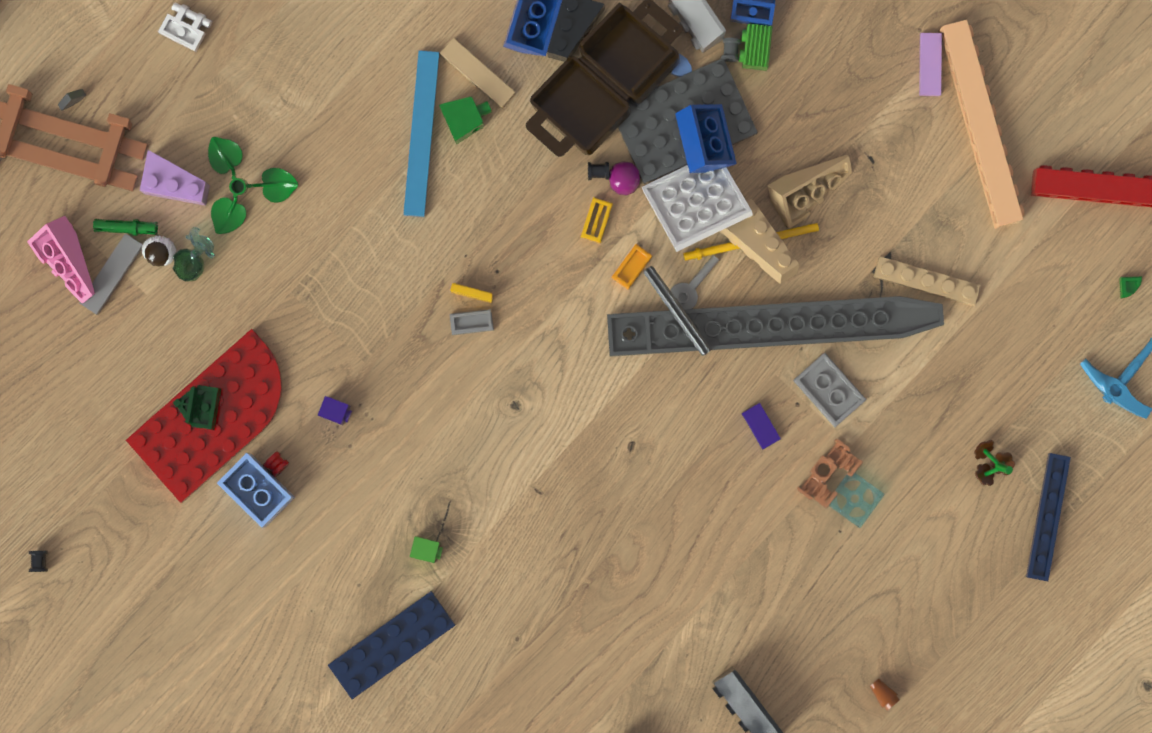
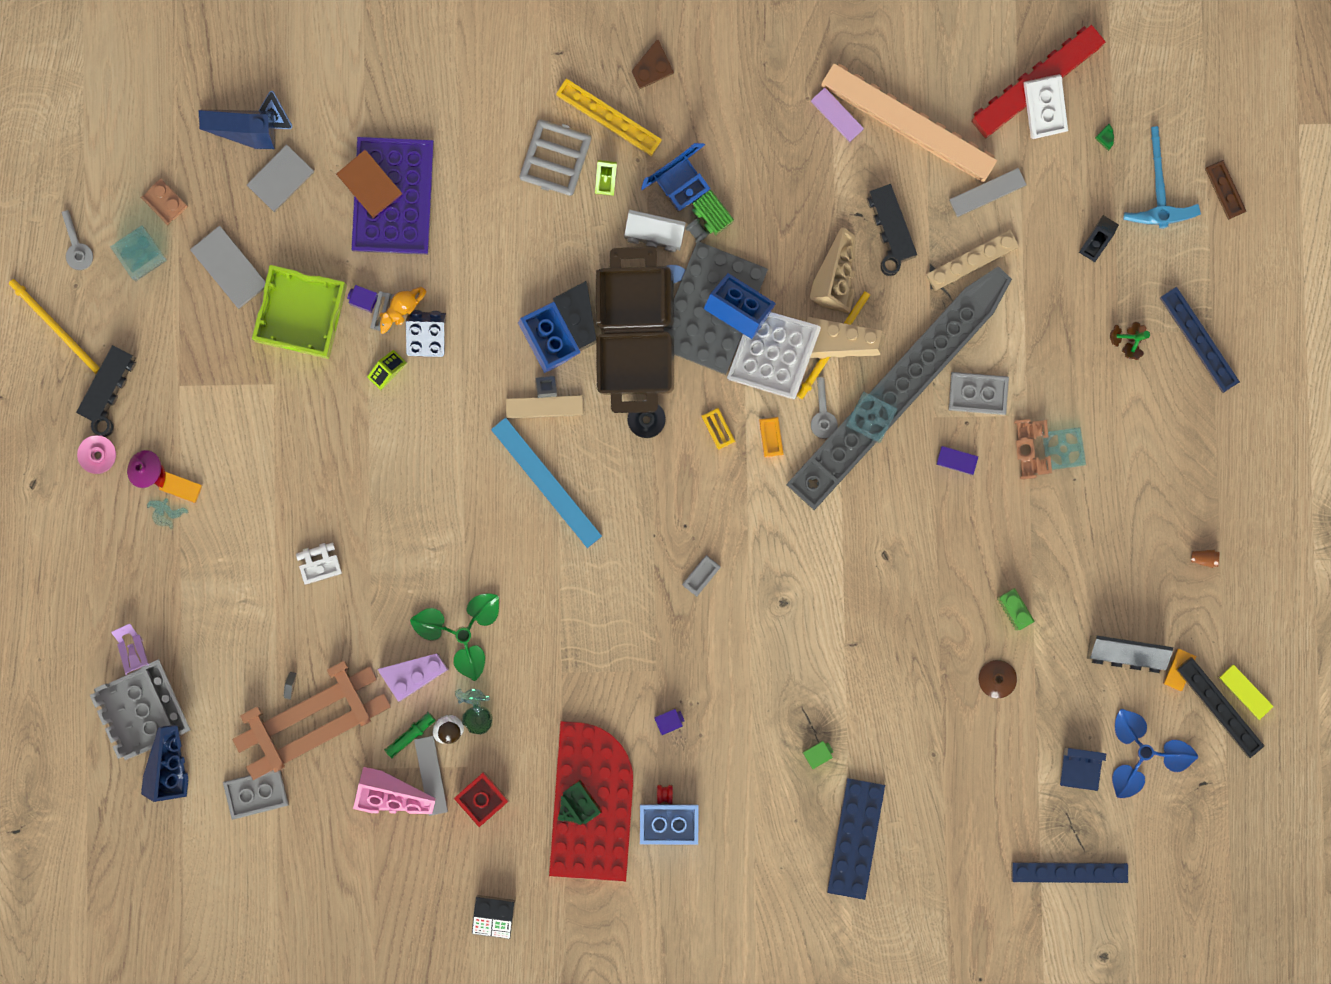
camera: 55 degrees left, 0 degrees up
(52, 429) = (493, 916): none -> black slope
(130, 329) = (481, 799): none -> red brick
(464, 117) = (565, 444): green torso -> none
(471, 292) = (683, 556): yellow tile -> none
(493, 58) = (546, 387): none -> dark grey plate
(543, 170) = (650, 429): none -> black dish
(598, 171) = (687, 395): black bush -> none
(621, 618) = (990, 672): none -> reddish brown dish
(624, 178) = (709, 383): magenta hair -> none
(677, 311) = (830, 437): dark grey axle -> none
(692, 587) = (1015, 609): none -> bright green brick
(736, 306) = (865, 397): none -> clear light blue piece
(888, 194) = (893, 227): none -> black hinge
(991, 239) = (987, 192): none -> light grey tile
(1045, 359) = (1099, 238): none -> black slope
(1104, 214) = (1045, 106): none -> white tile

